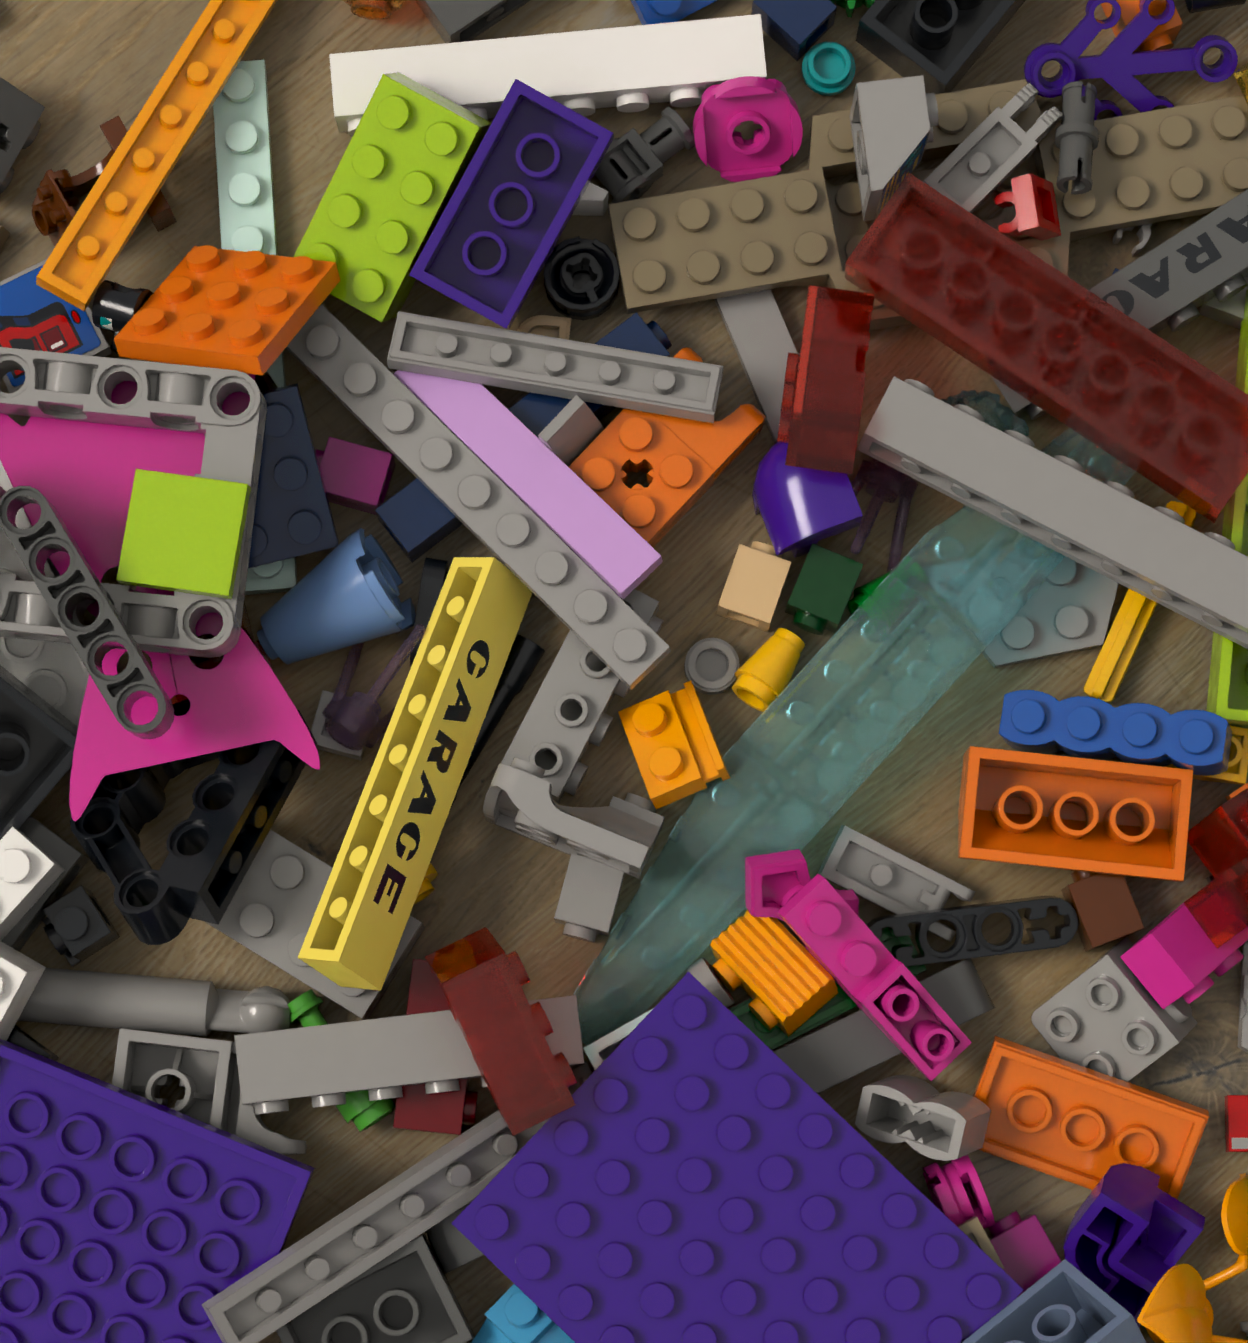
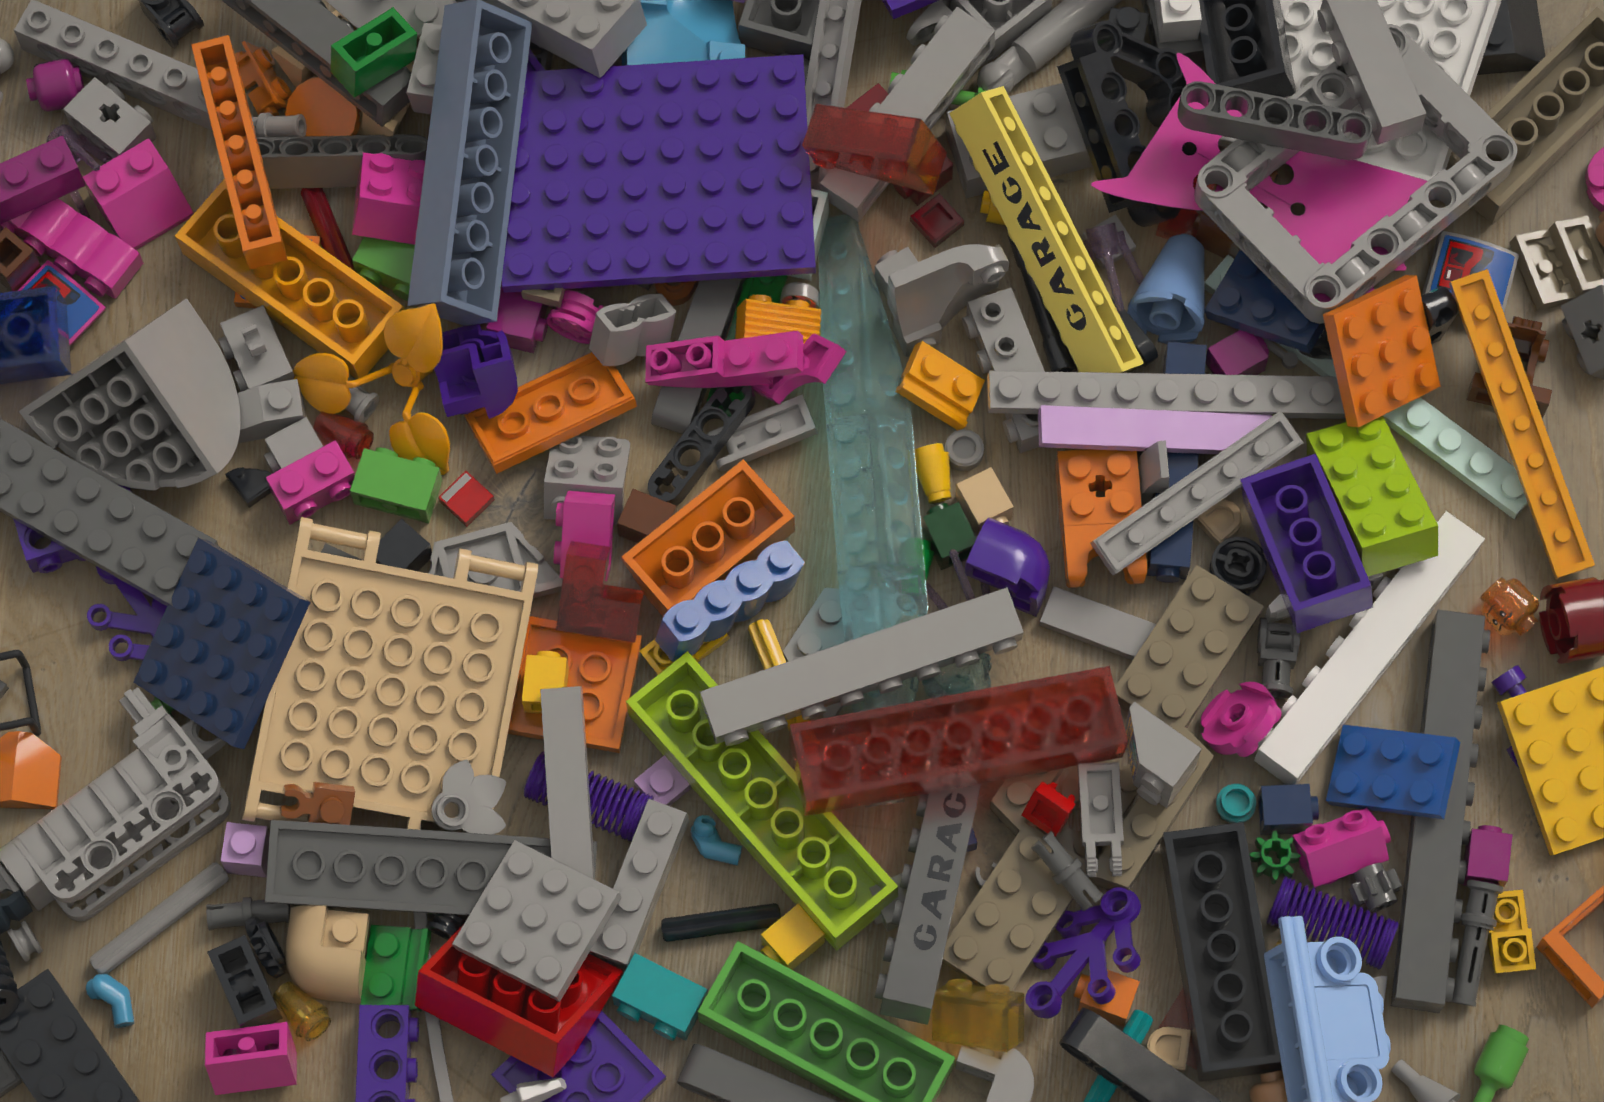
camera: 135 degrees right, 10 degrees down
(183, 533) = (1272, 204): lime tile -> none
(476, 915) = (937, 220): none -> dark red tile
(826, 381) = (1053, 608): clear red wedge -> none

